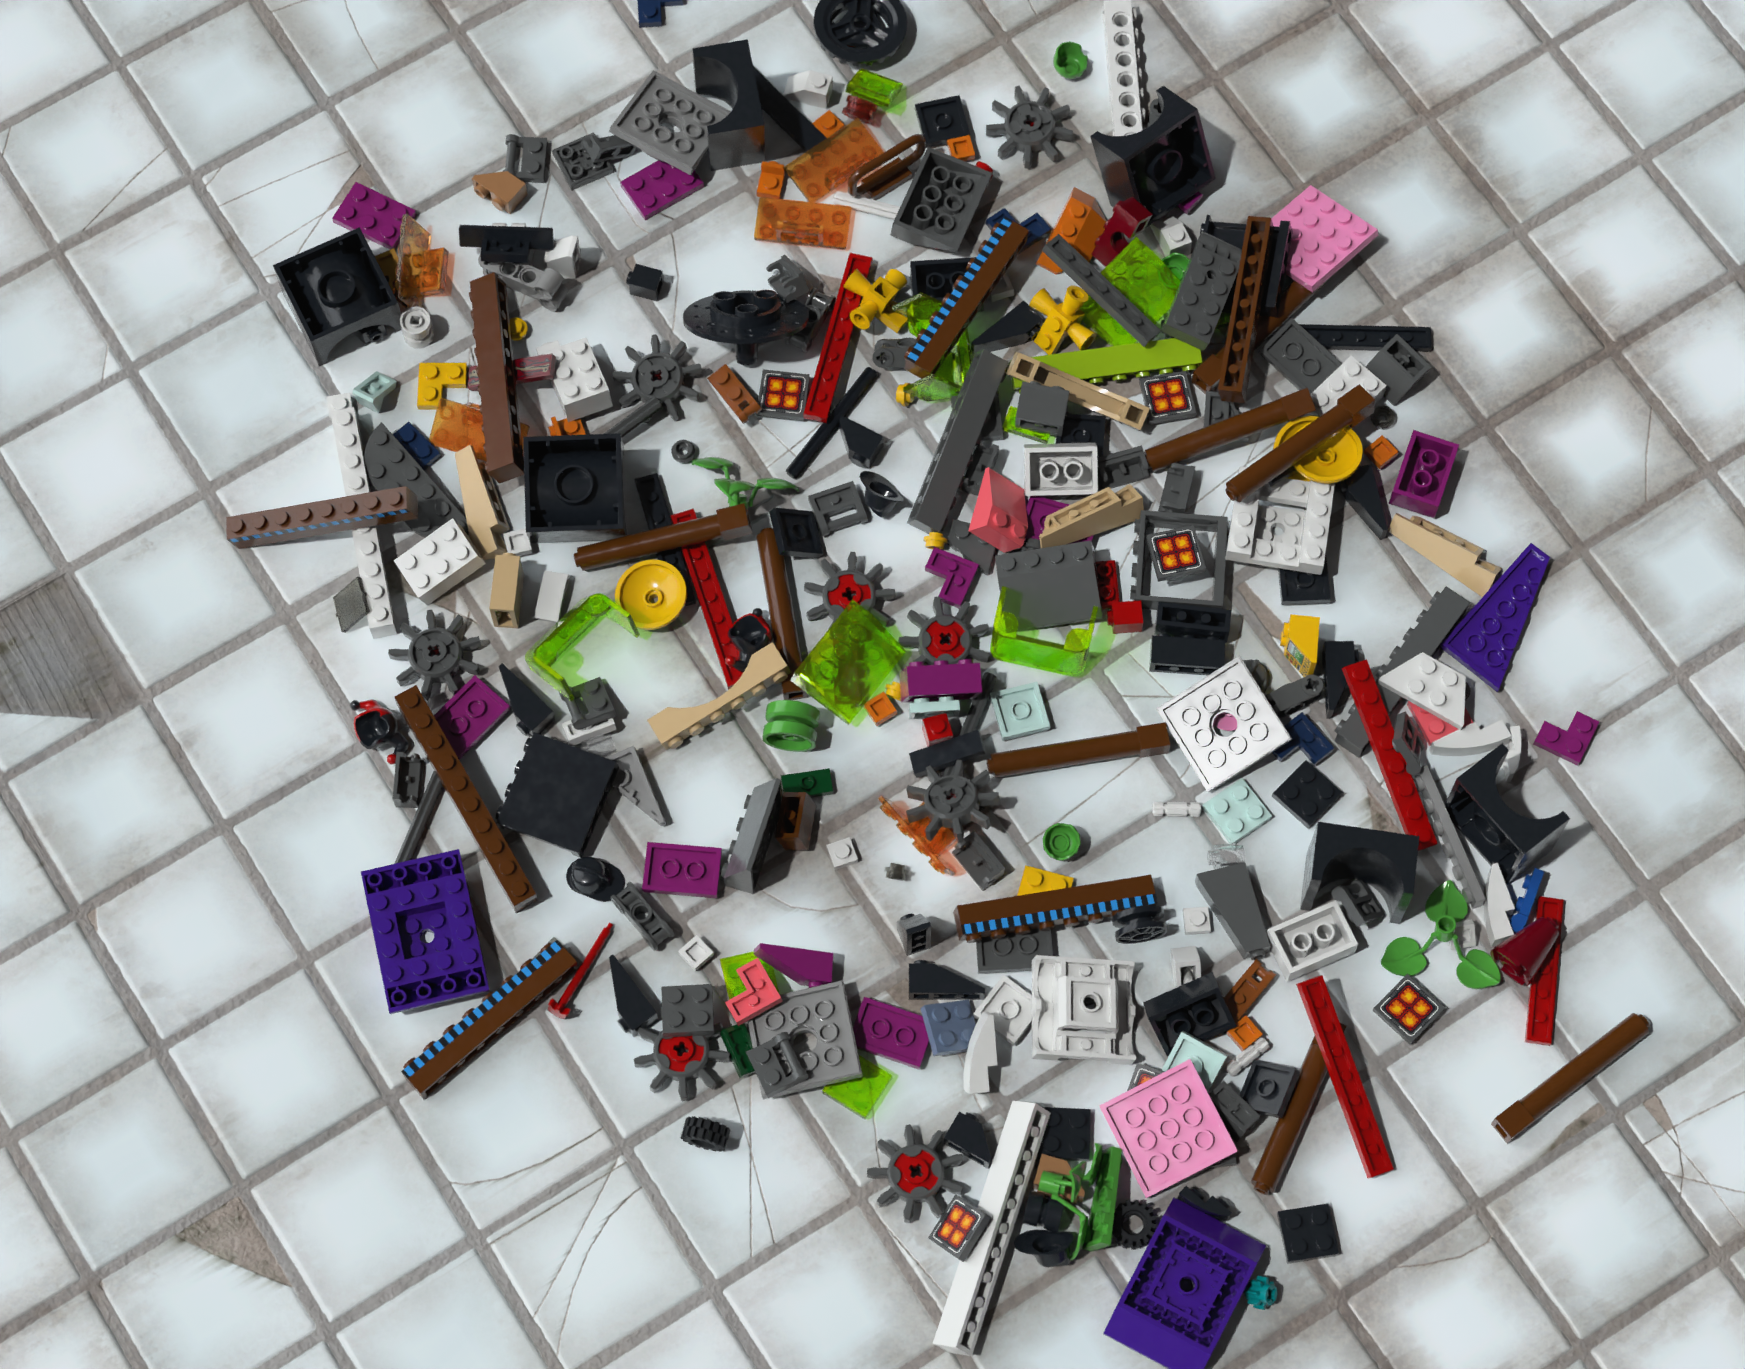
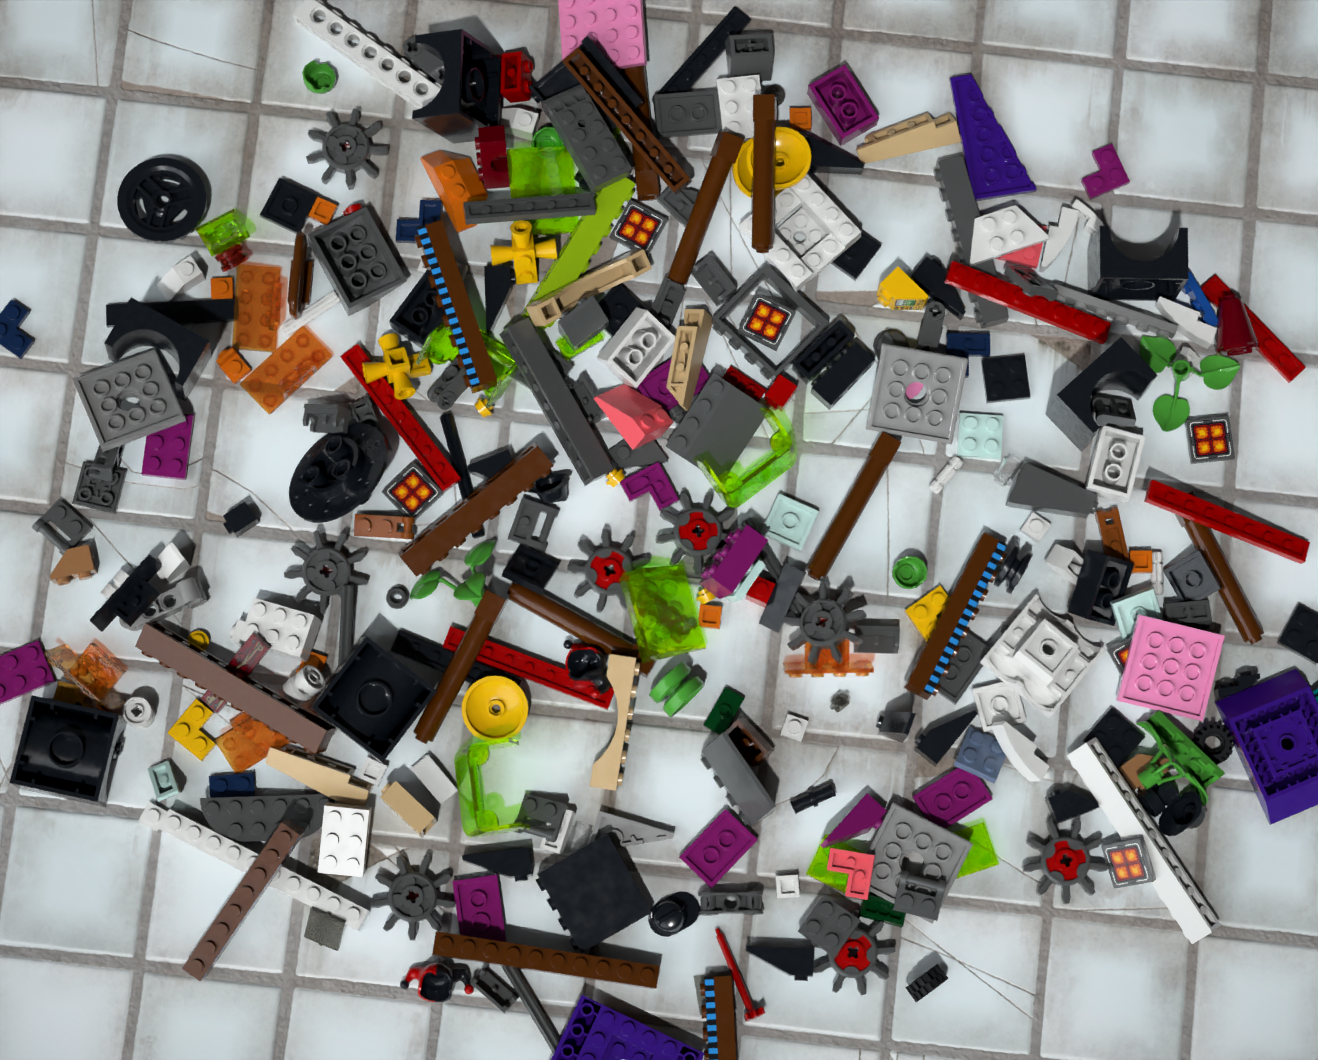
camera: 55 degrees left, 10 degrees up
(543, 425) = (304, 685): none -> white wheel
(792, 915) = (813, 798): none -> black pin
(809, 449) = (476, 509): none -> reddish brown brick
(1211, 199) = (516, 76): none -> red brick

